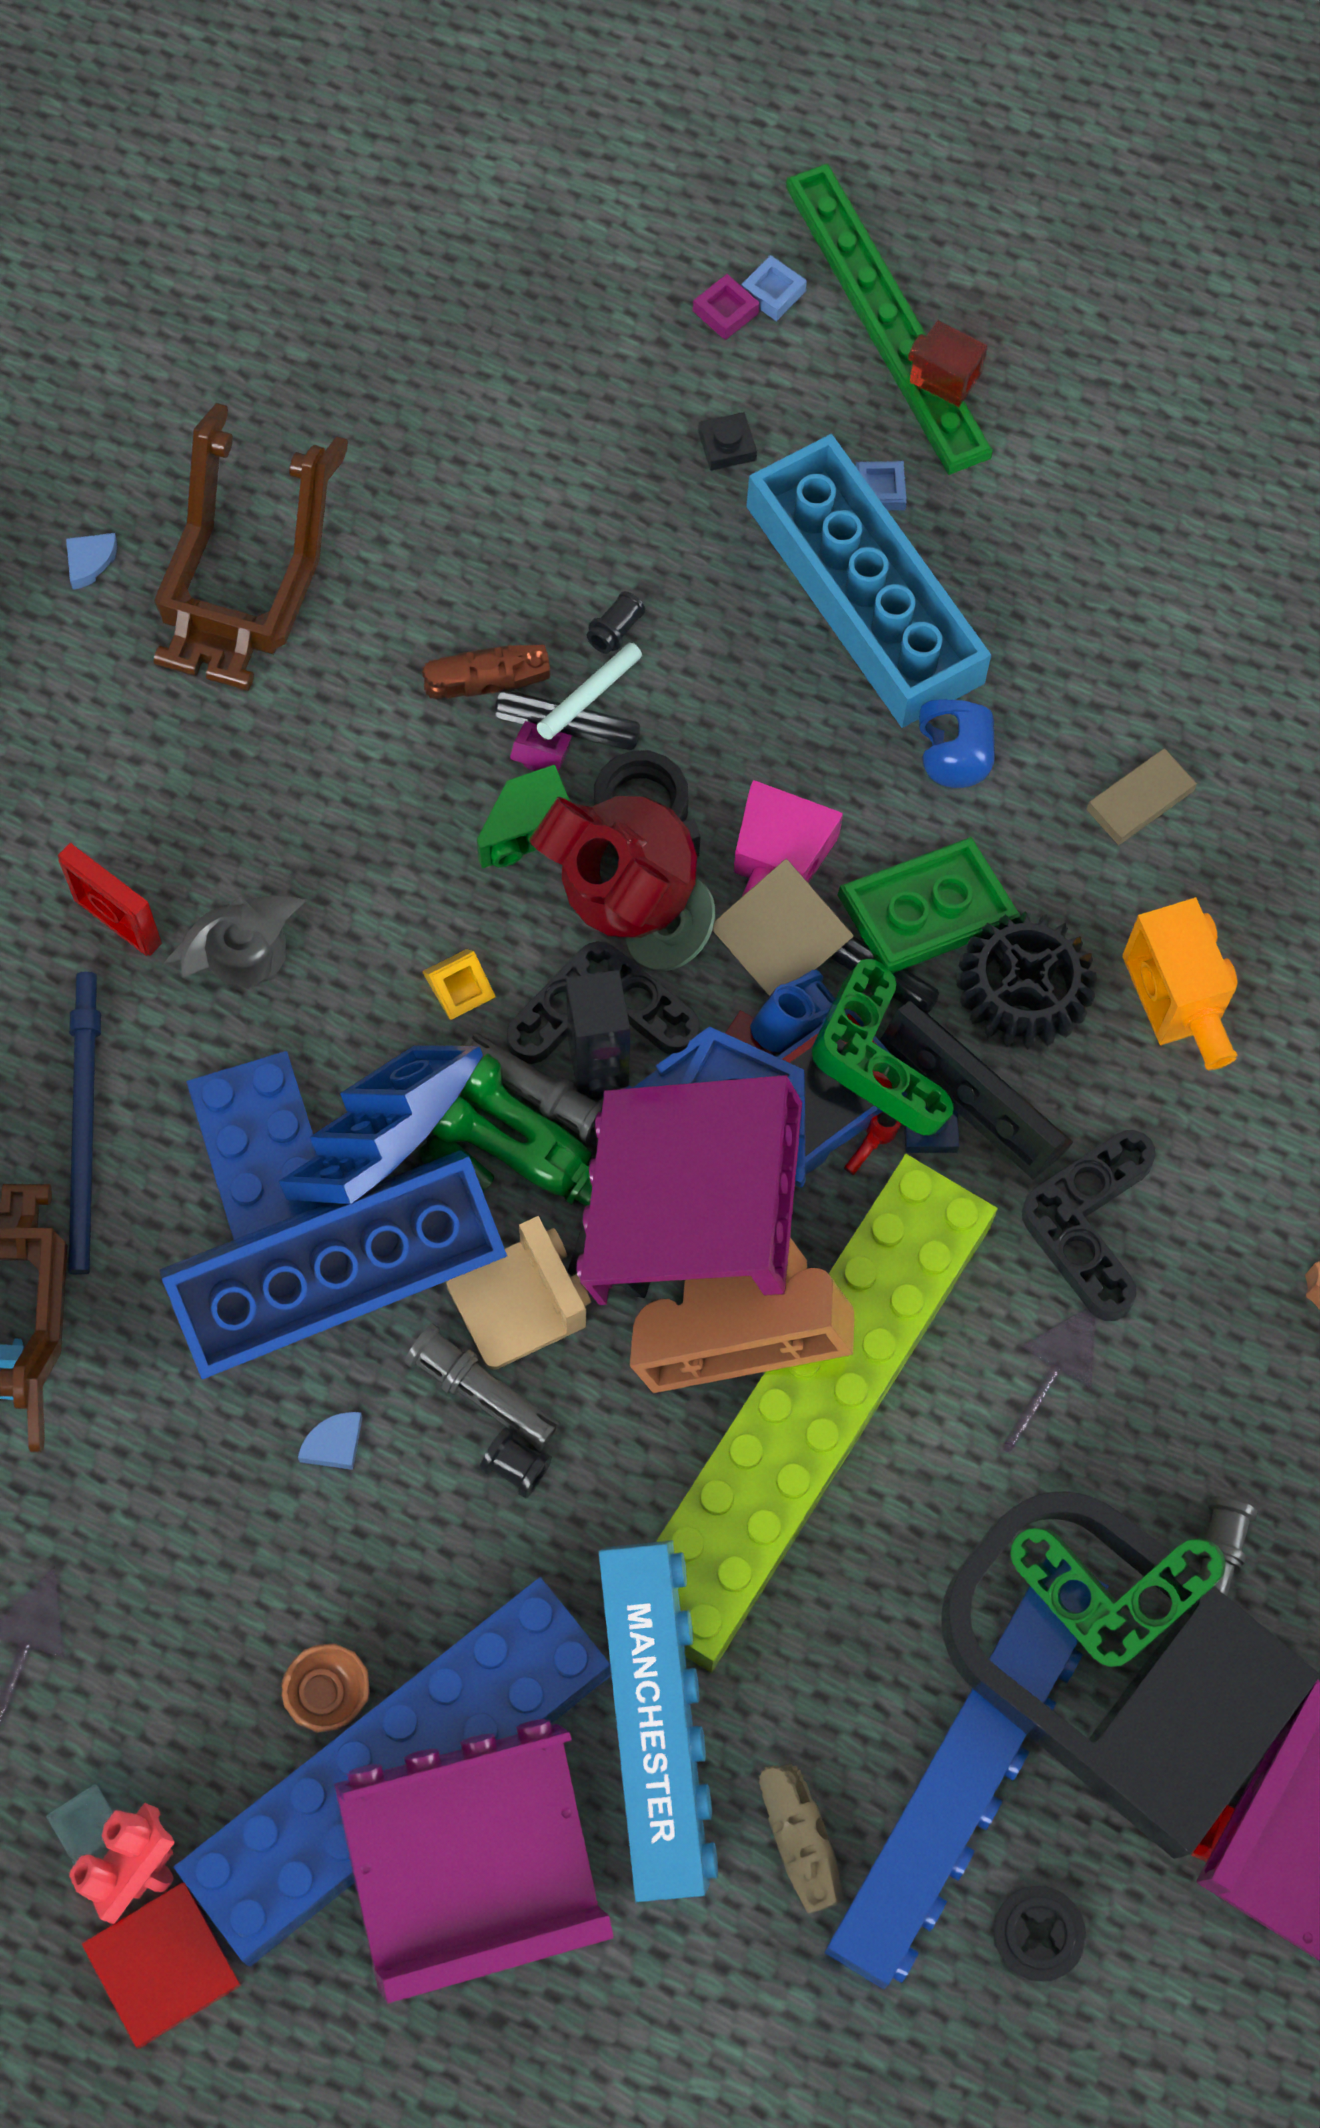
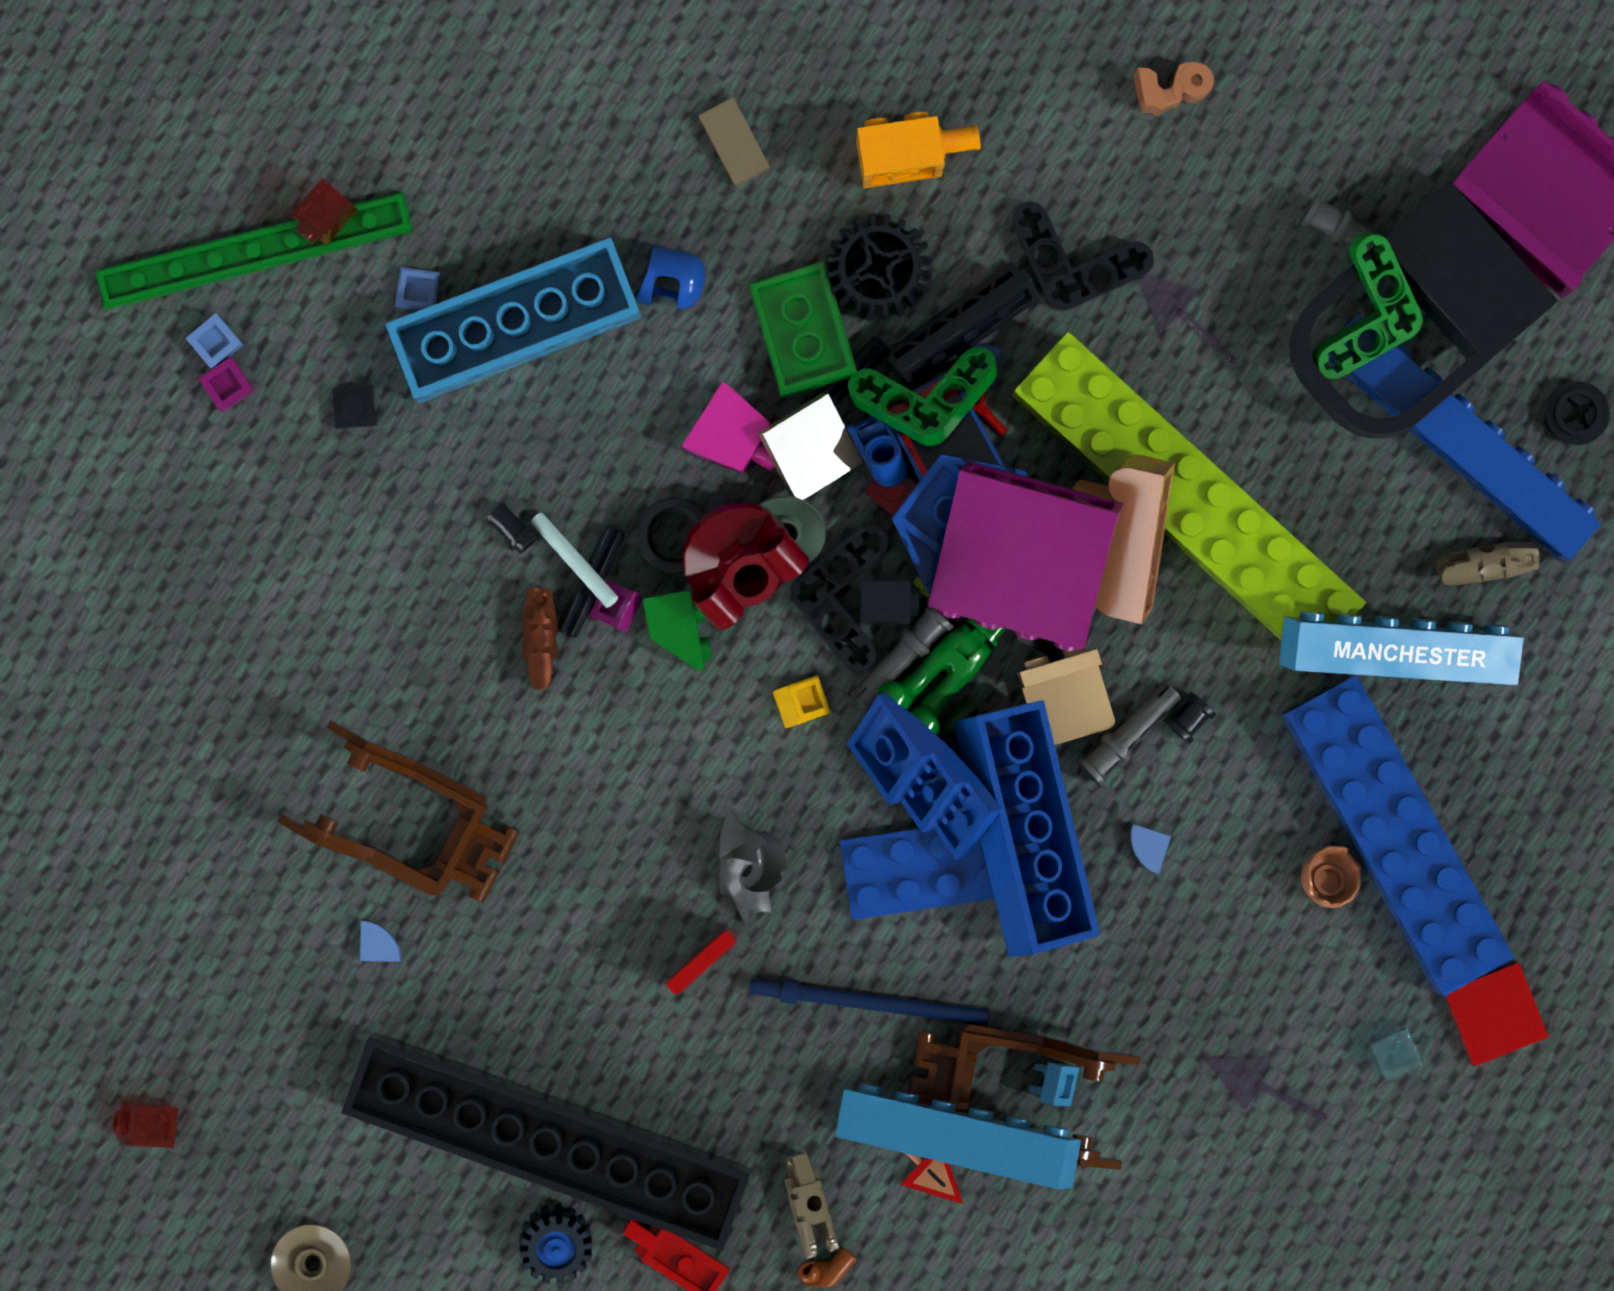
camera: 75 degrees left, 20 degrees up
(133, 1863) = (1429, 1025): coral hips -> none
(470, 1860) = (1476, 792): magenta panel -> none

